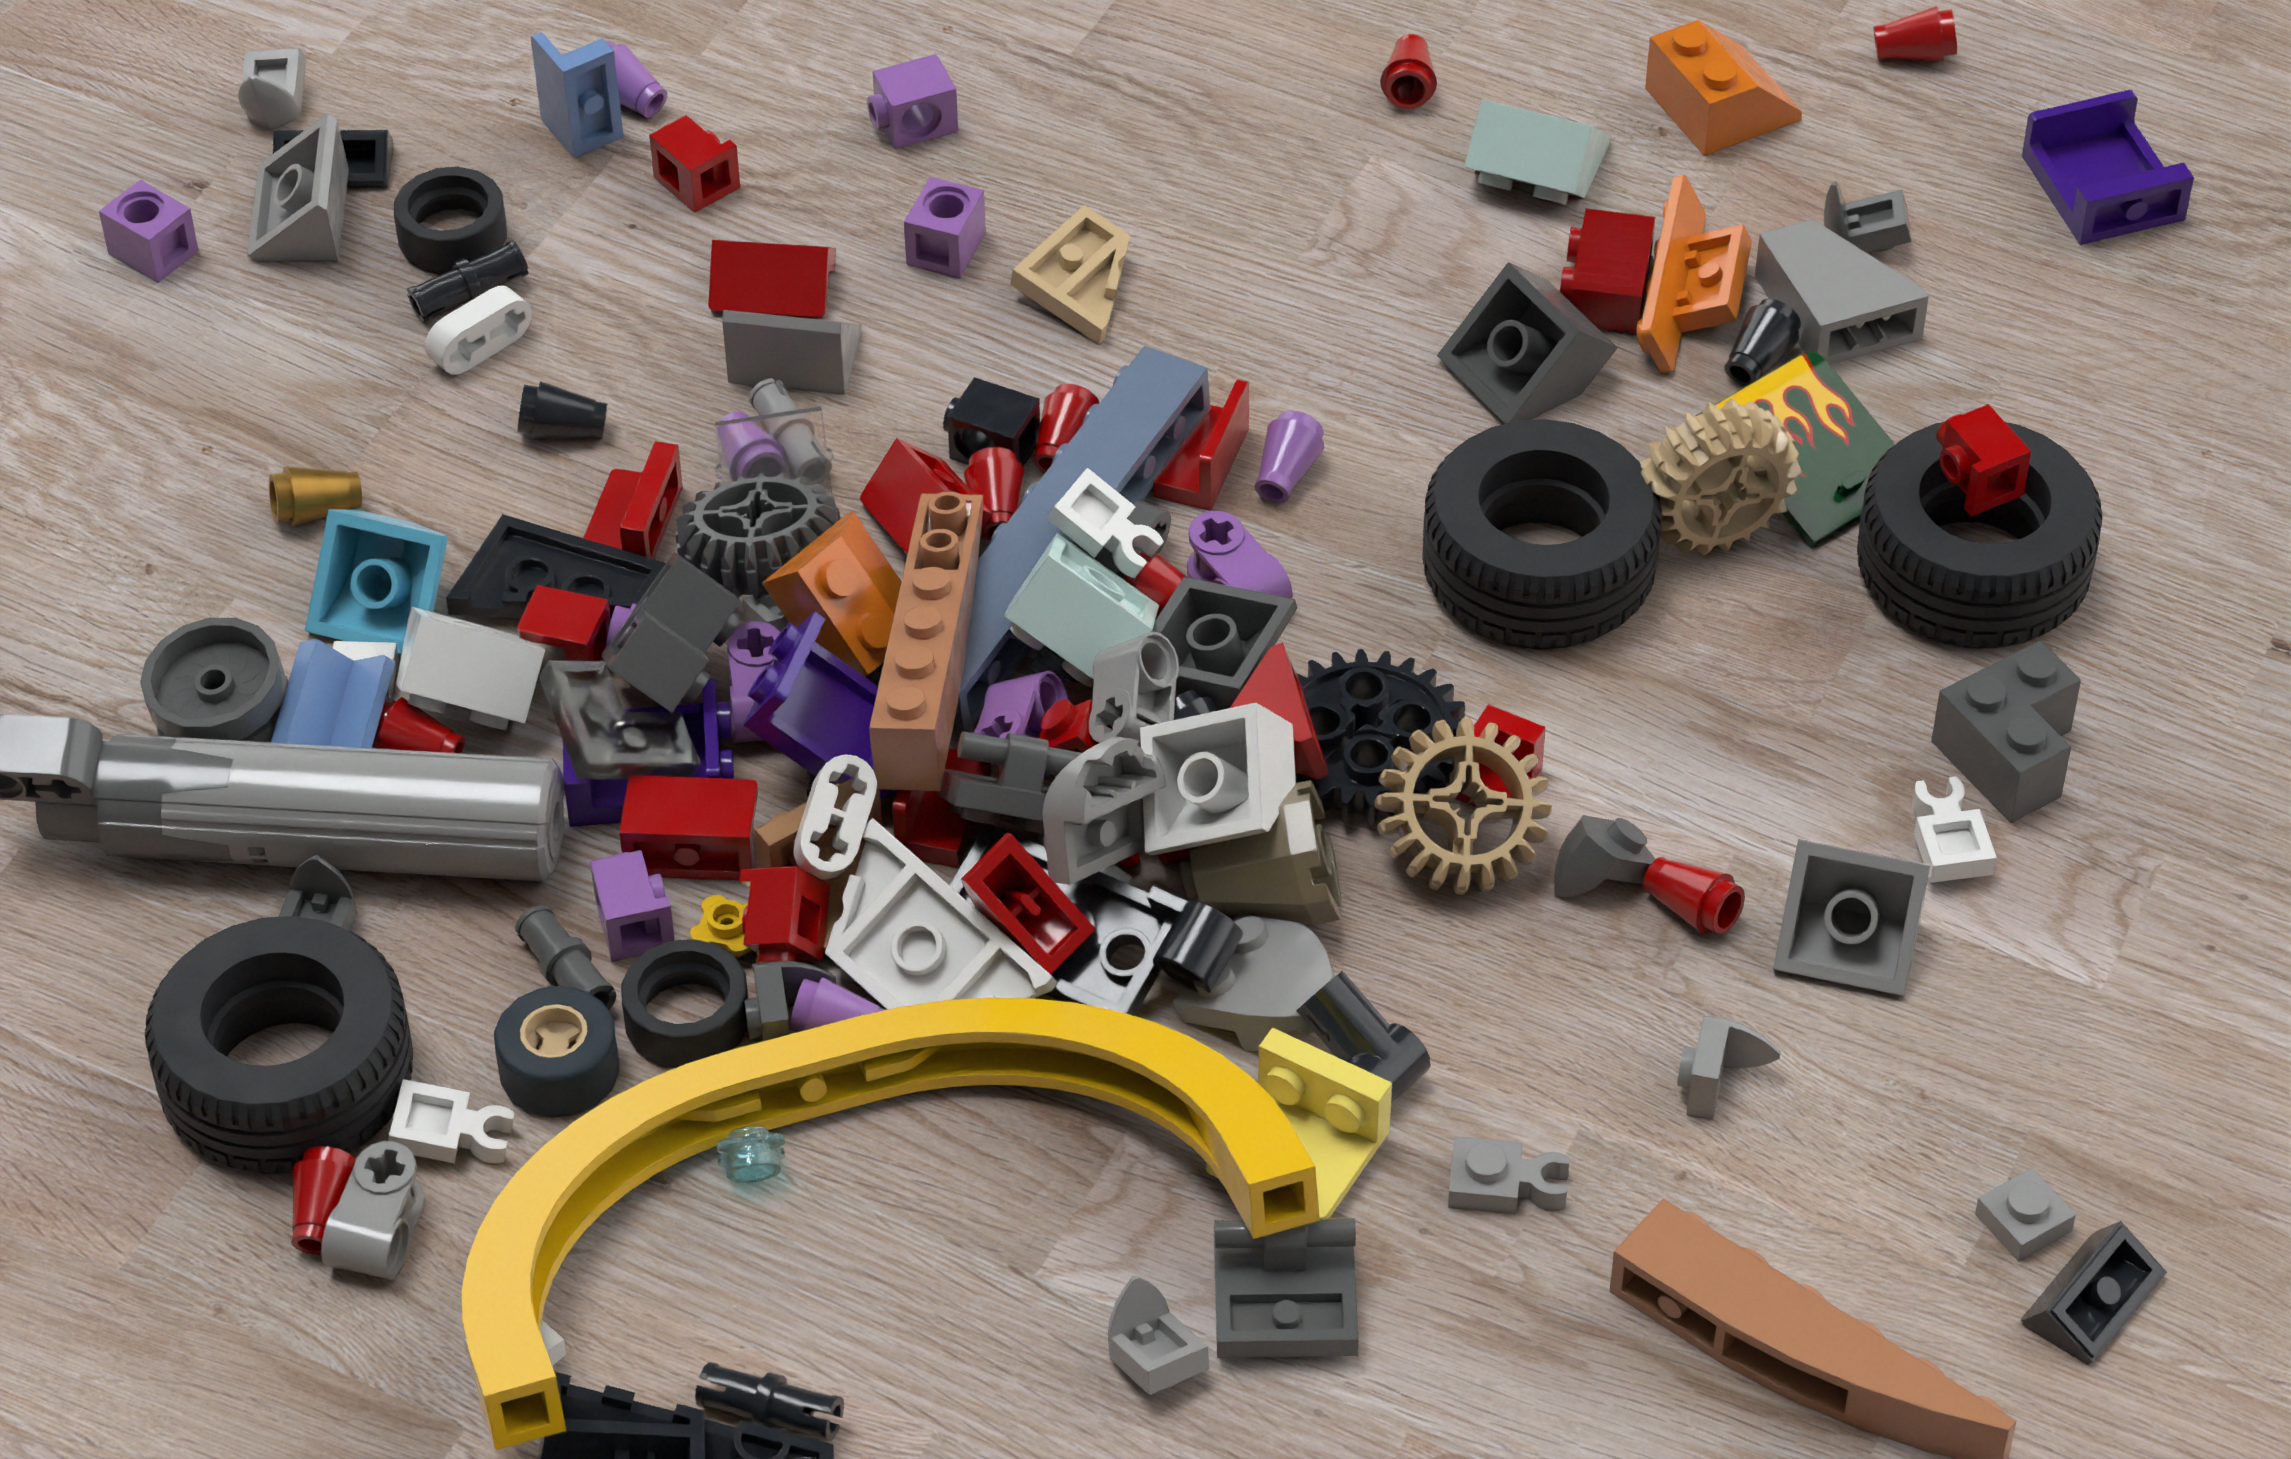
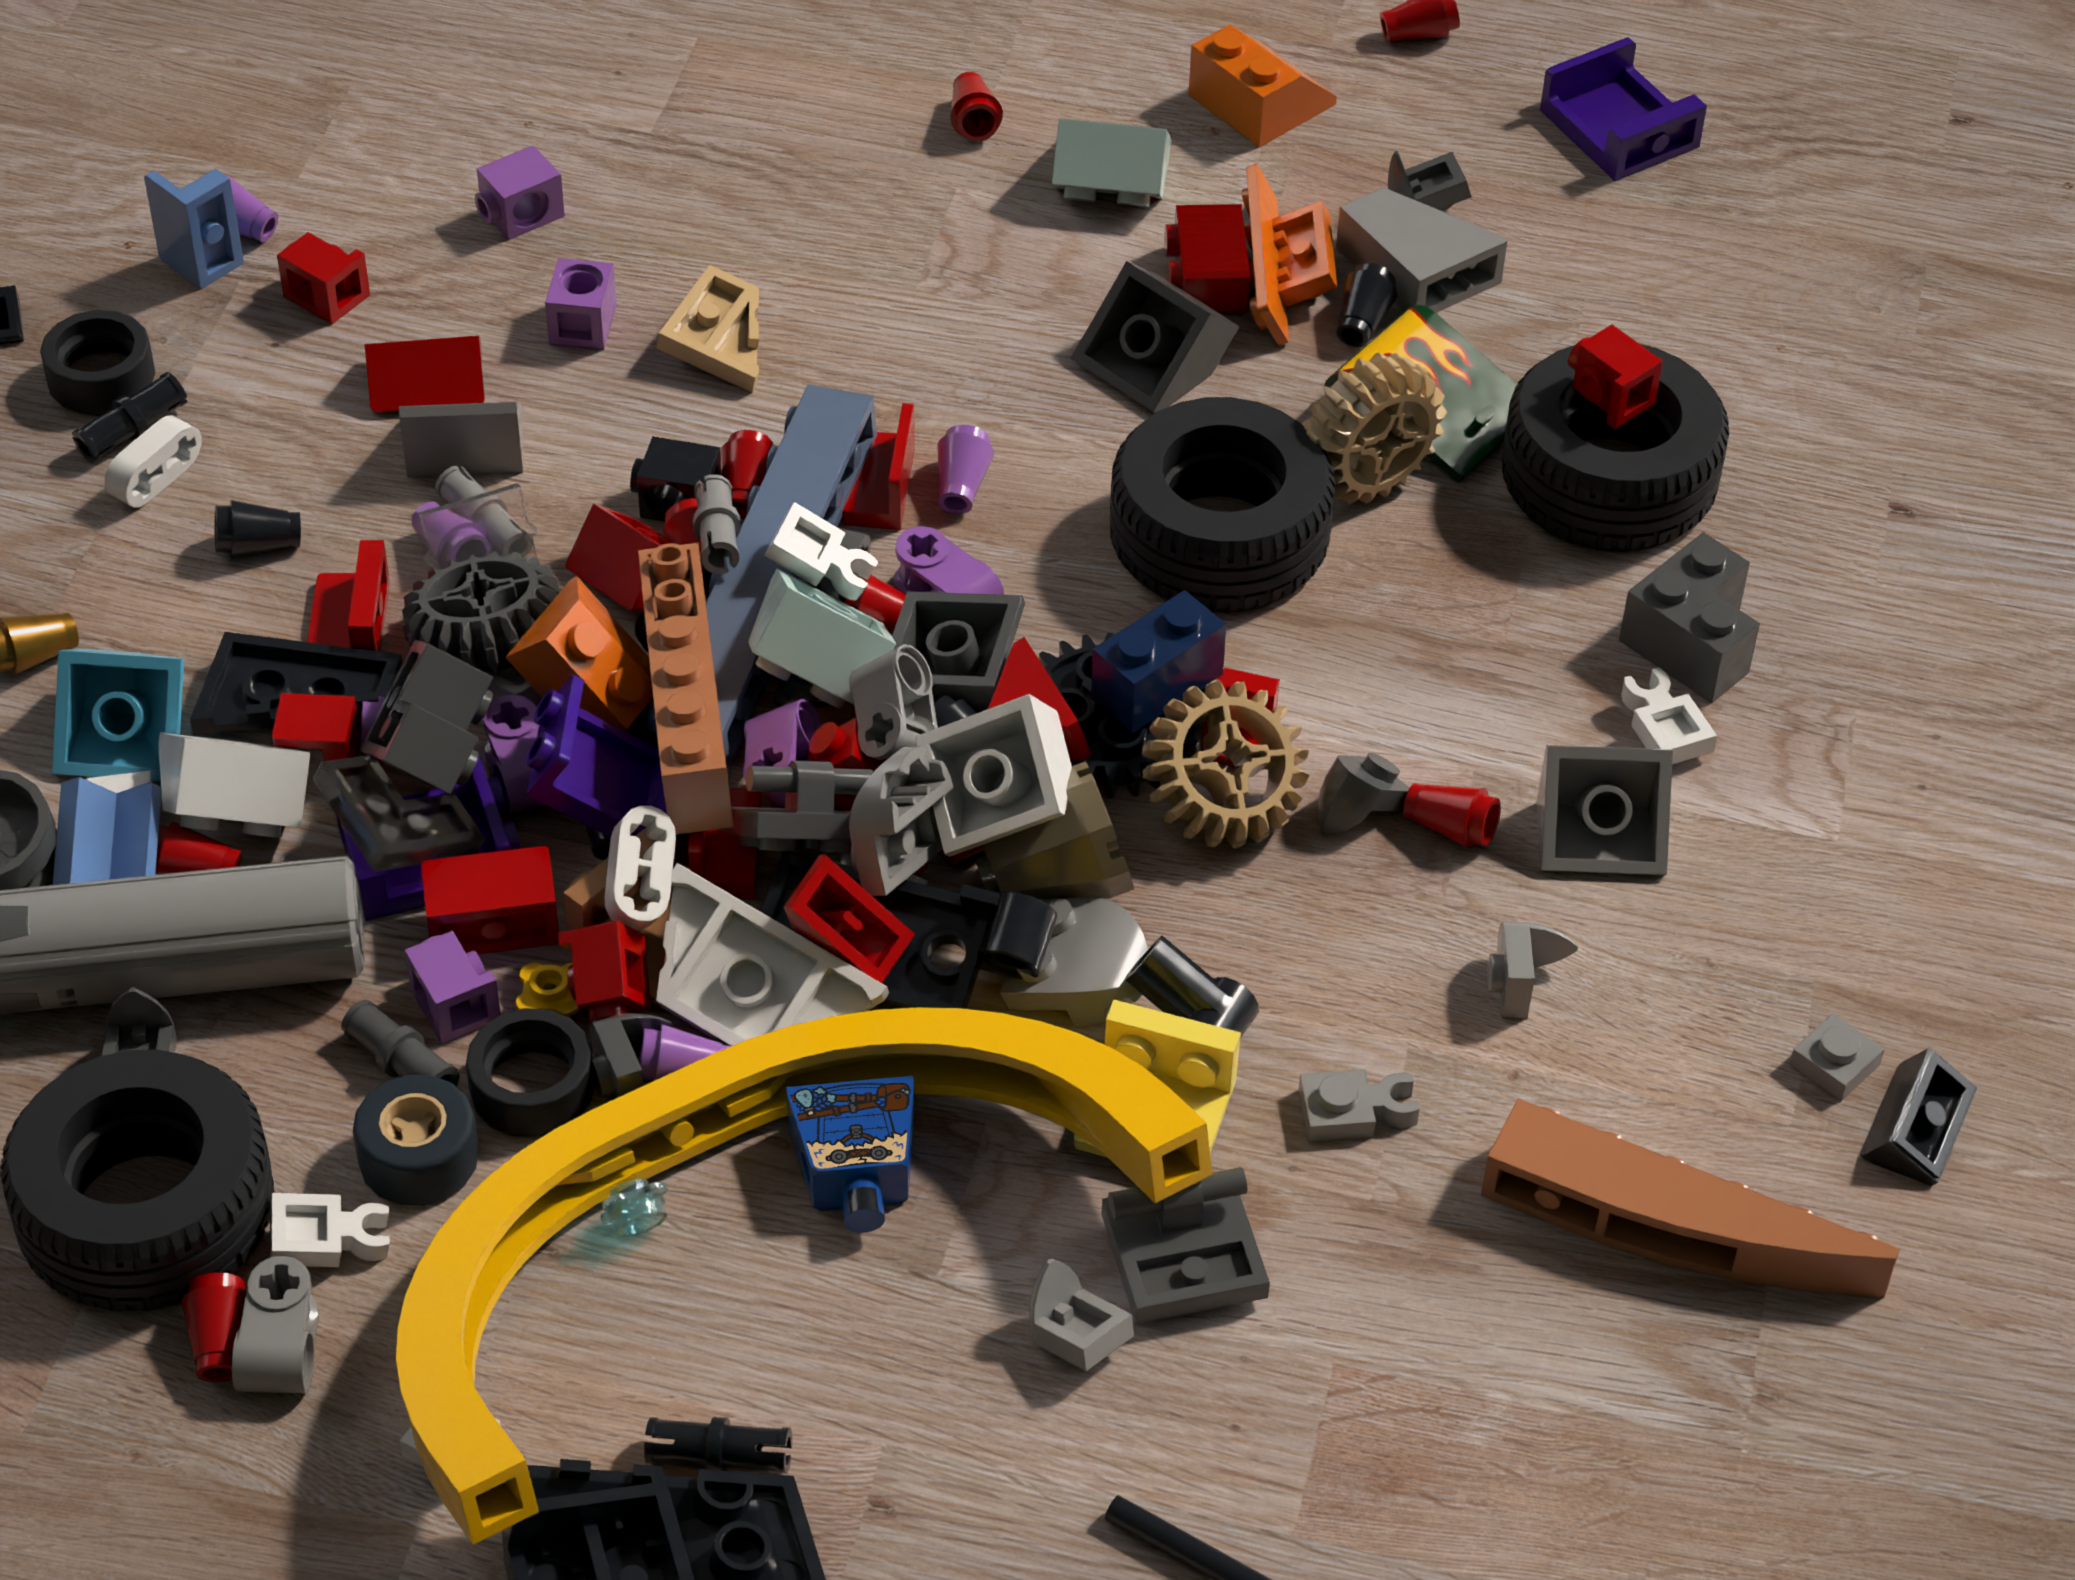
camera: 15 degrees left, 0 degrees up
(986, 1131) = (854, 1145): none -> torso
(1009, 478) = (716, 524): none -> light grey pin
(1415, 686) = (1157, 660): none -> dark blue brick

